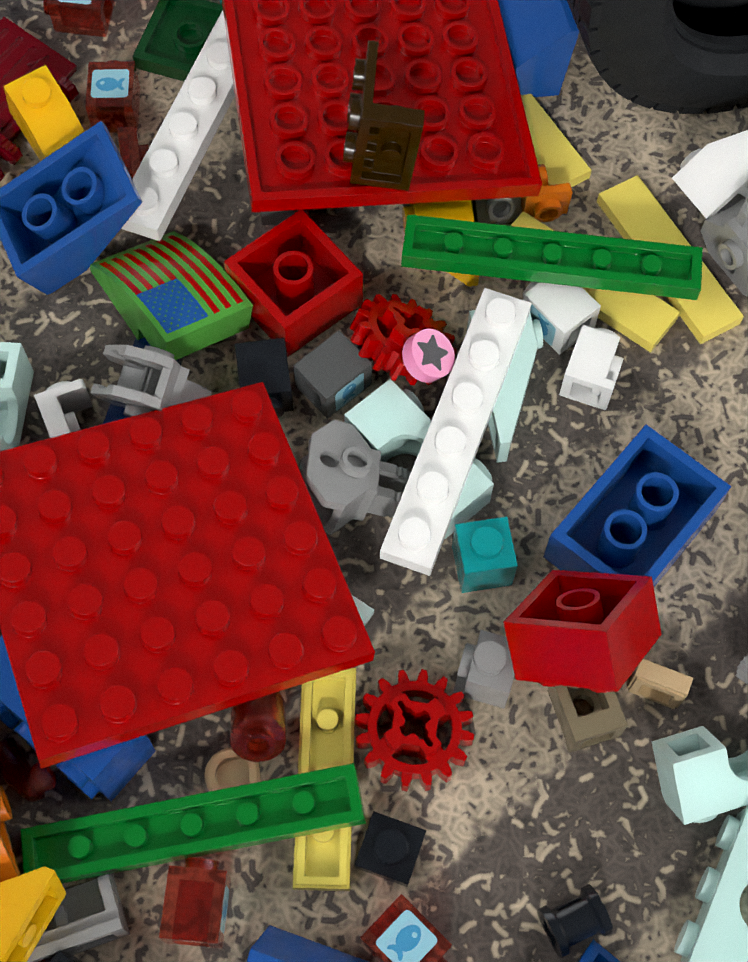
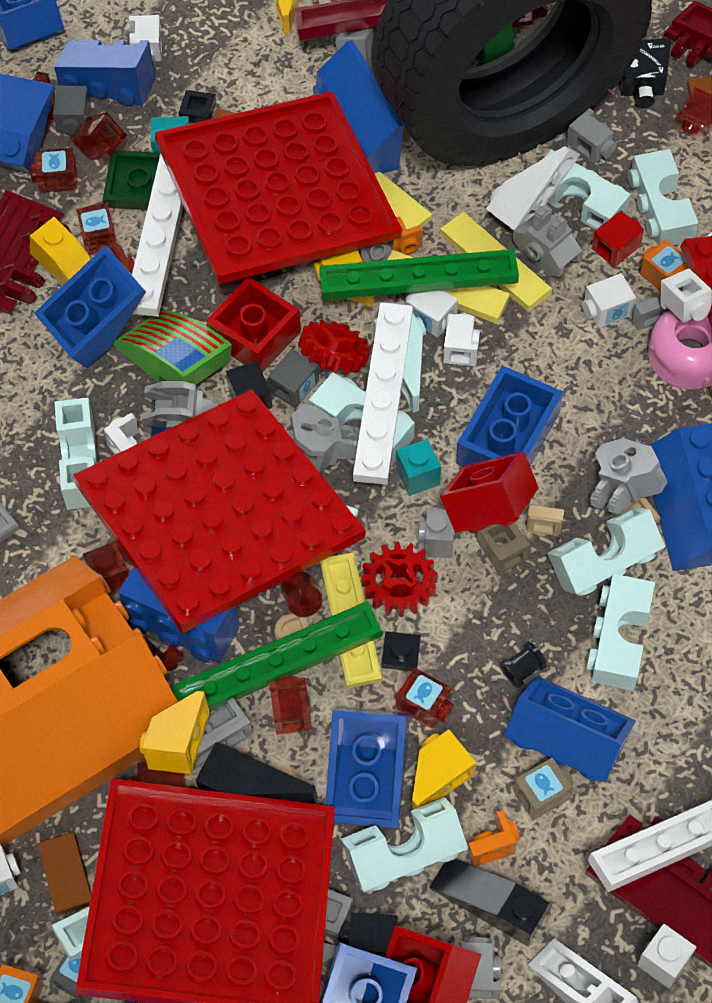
camera: 10 degrees left, 5 degrees down
(384, 135) = (293, 221): dark brown bracket -> none
(428, 355) = (354, 351): bright pink tile -> none

